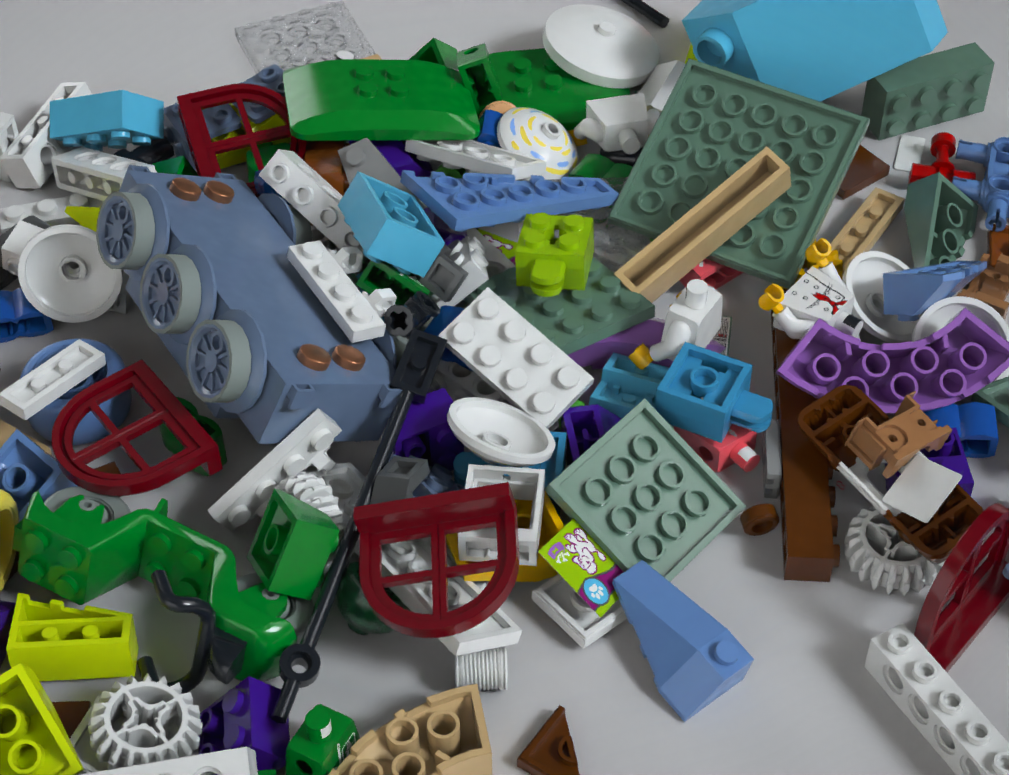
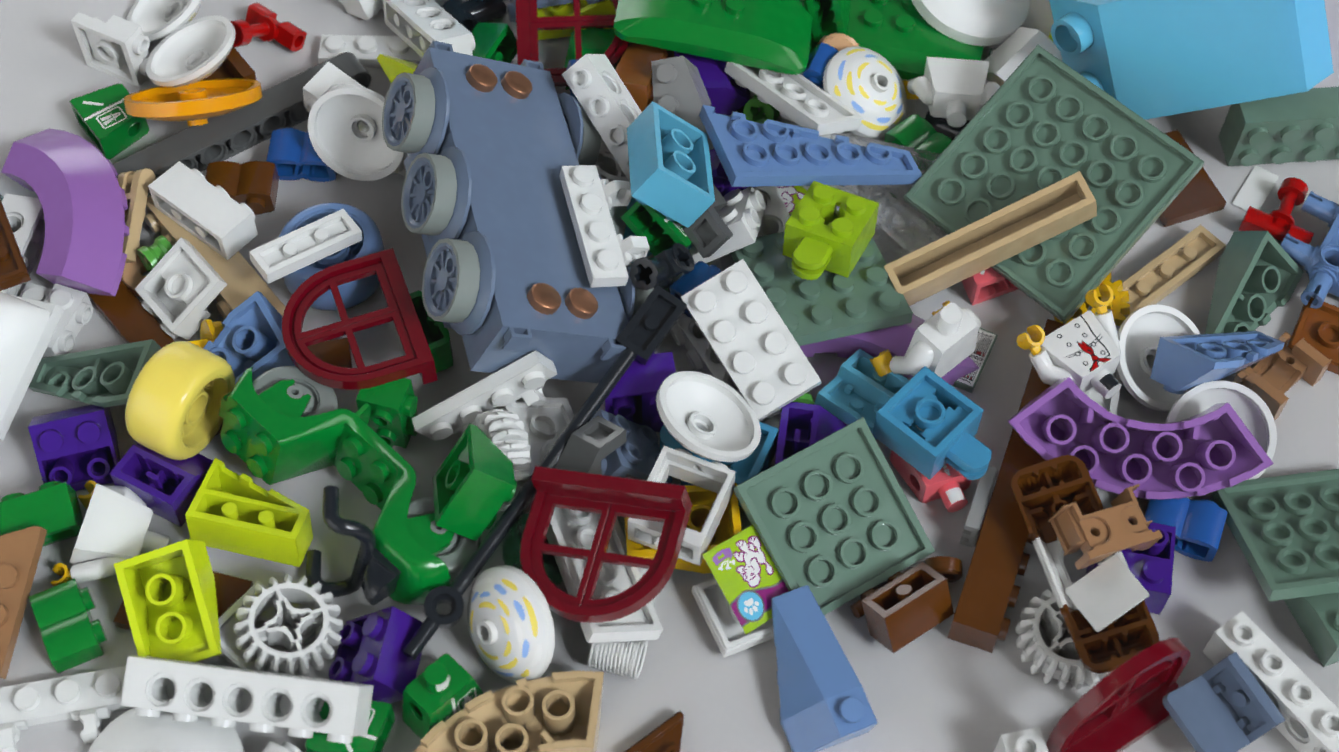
camera: 15 degrees right, 10 degrees up
(186, 501) = (391, 410): none -> green brick
(371, 663) = (510, 624): none -> white dish
(738, 557) = (905, 606): none -> reddish brown brick

